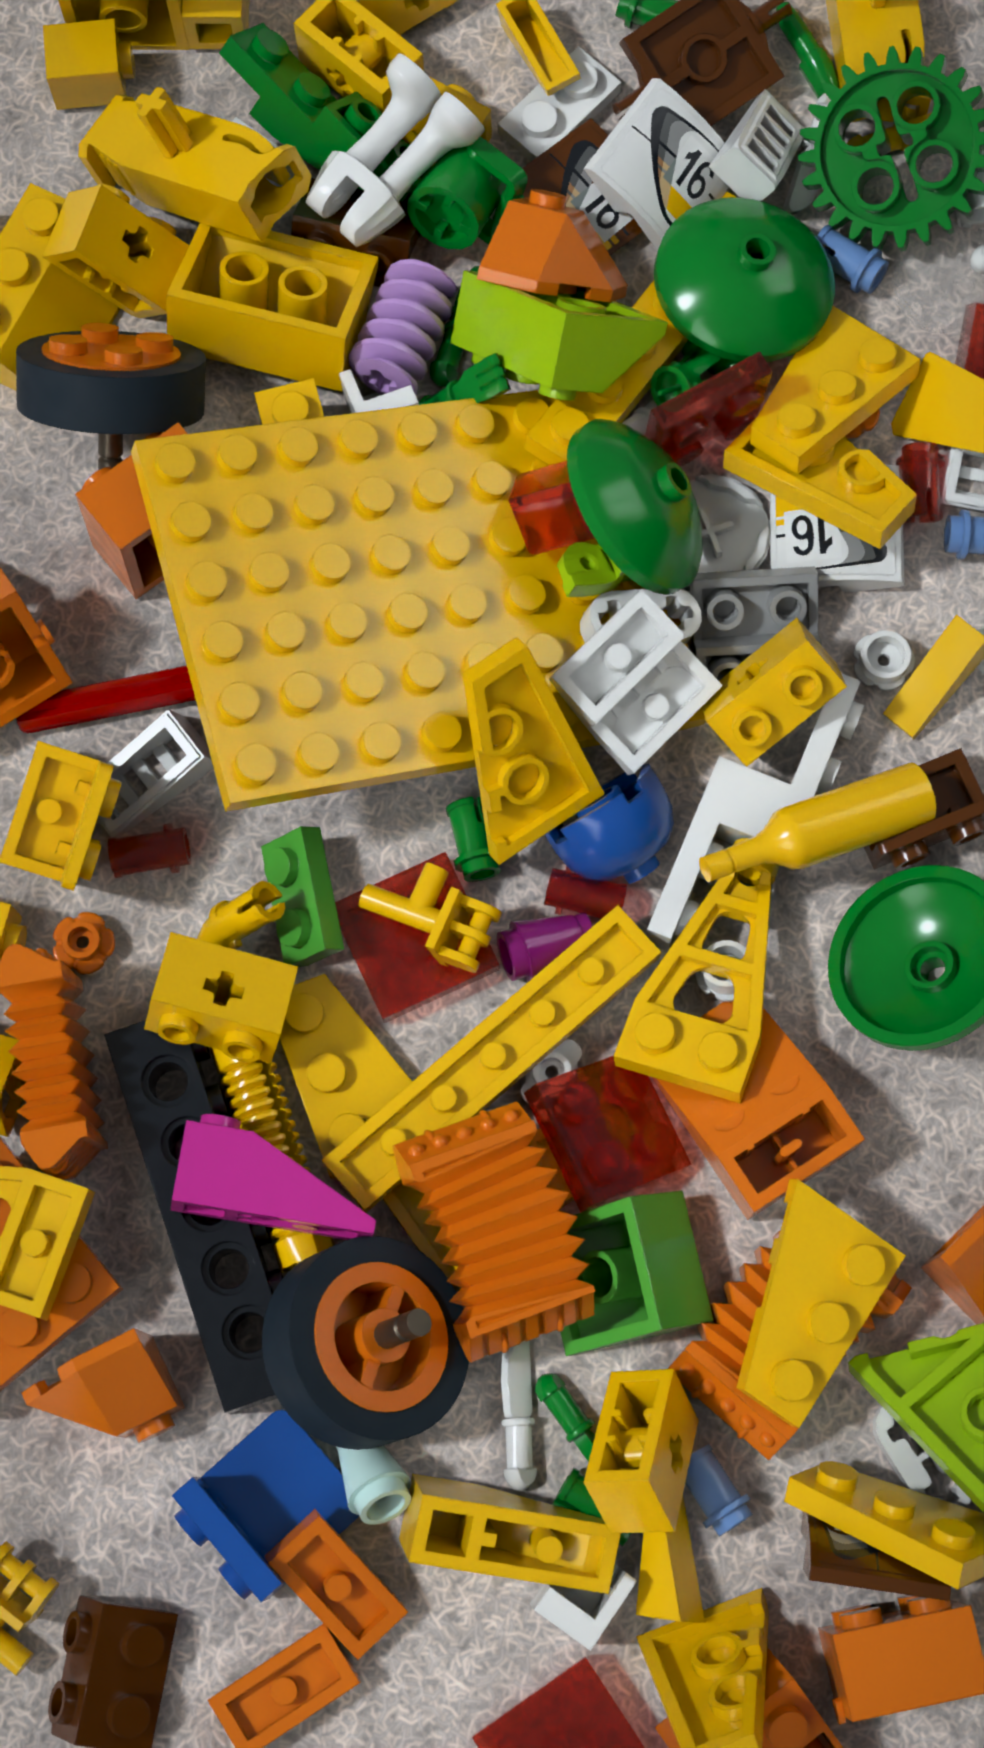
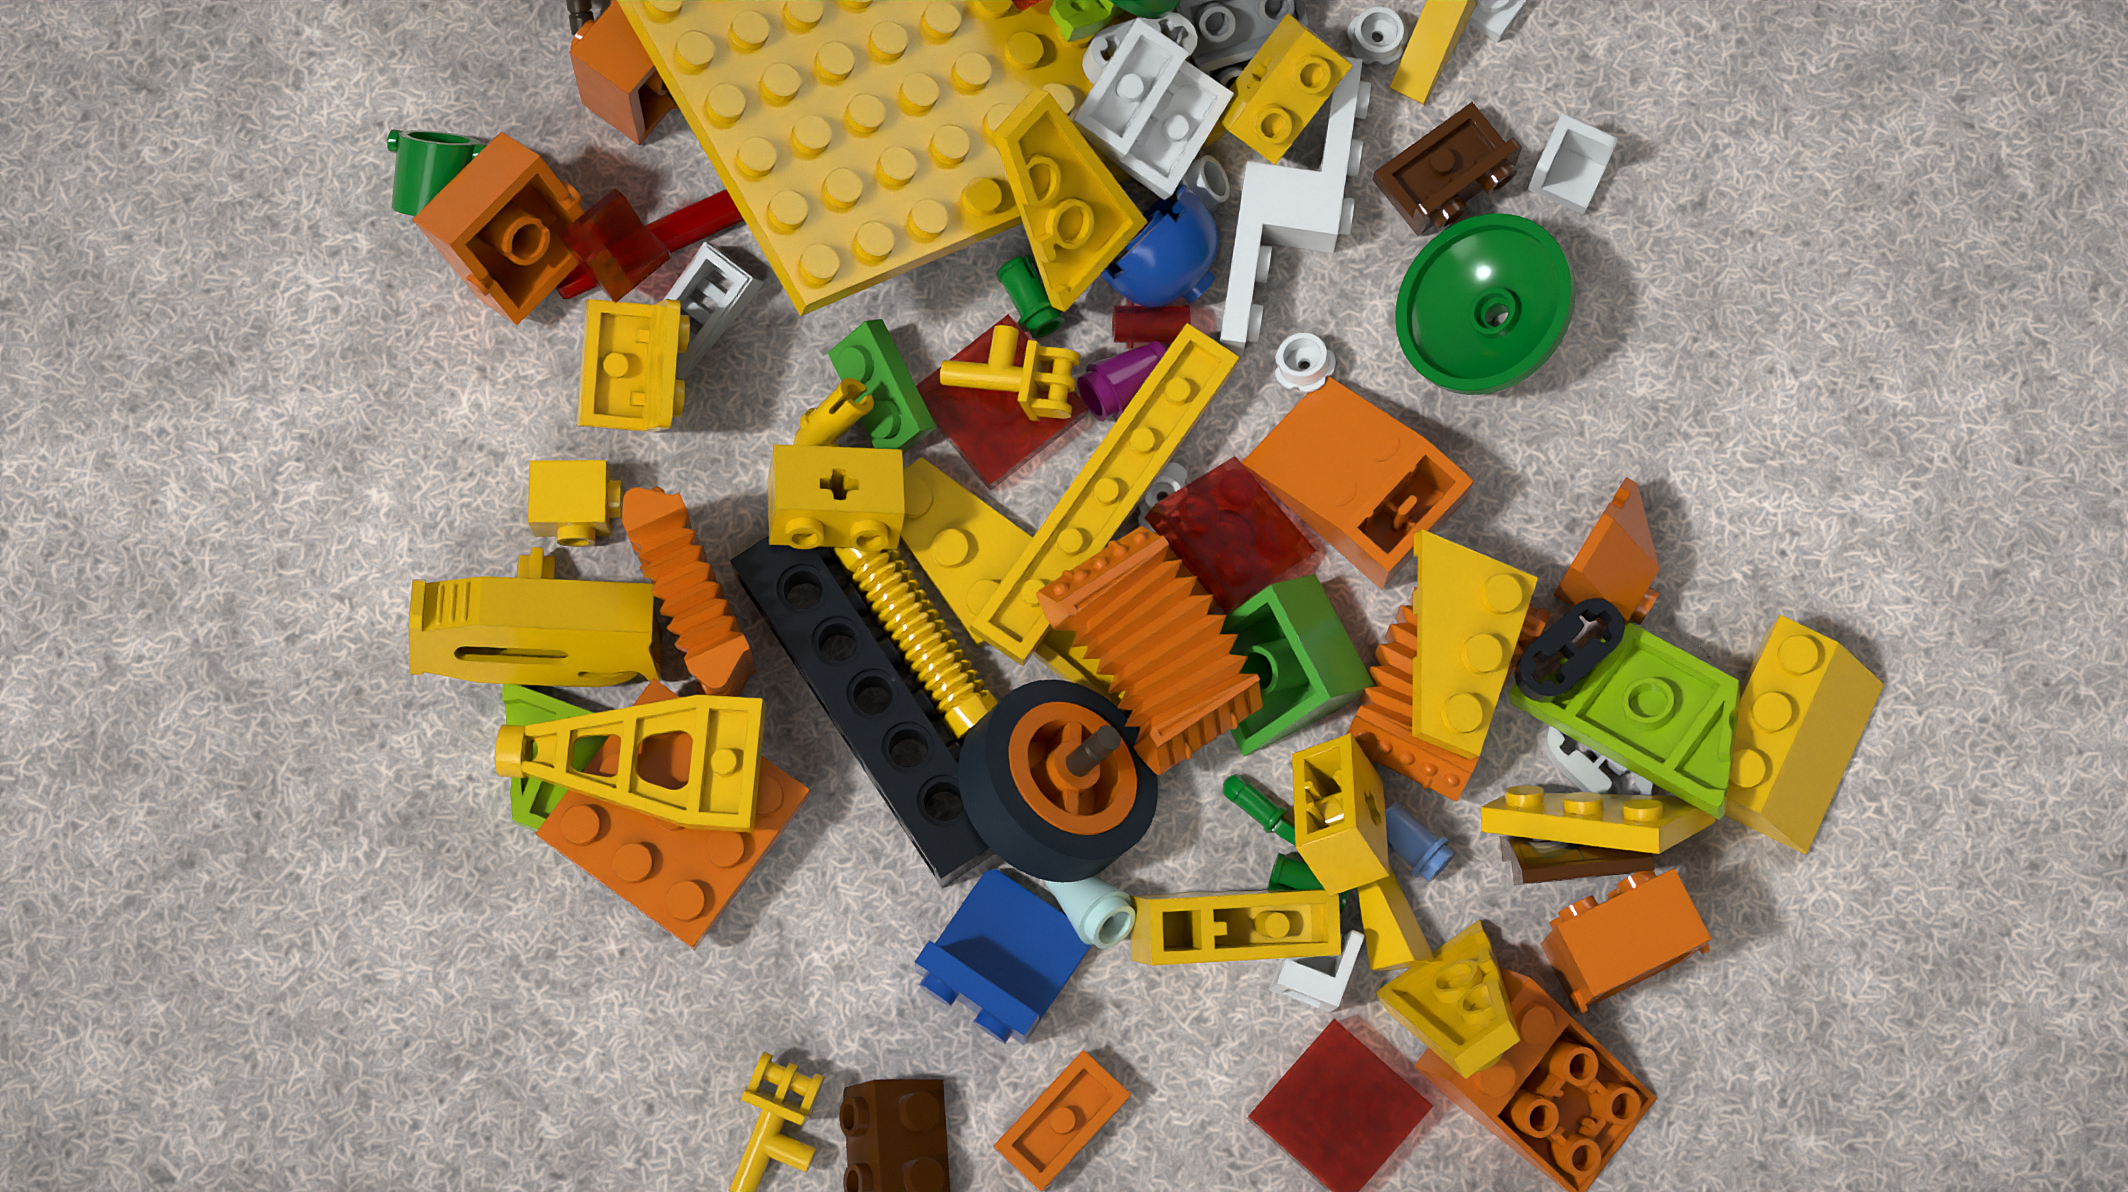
camera: 20 degrees left, 0 degrees up
(75, 694) = (614, 246): none -> clear red panel
(100, 945) = (683, 467): orange plate -> none
(113, 1389) = (827, 886): orange slope -> none
(150, 852) = (722, 382): clear red pin -> none
(250, 1181) = (912, 658): dark pink slope -> none
(336, 1584) = (1086, 1011): orange plate -> none
(517, 1410) = (1211, 815): white piece -> none
(675, 766) = (1207, 181): none -> white plate
(688, 1047) = (1289, 438): yellow plate -> none
(832, 823) = (1371, 197): yellow piece -> none
(927, 1353) = (1559, 639): none -> black beam

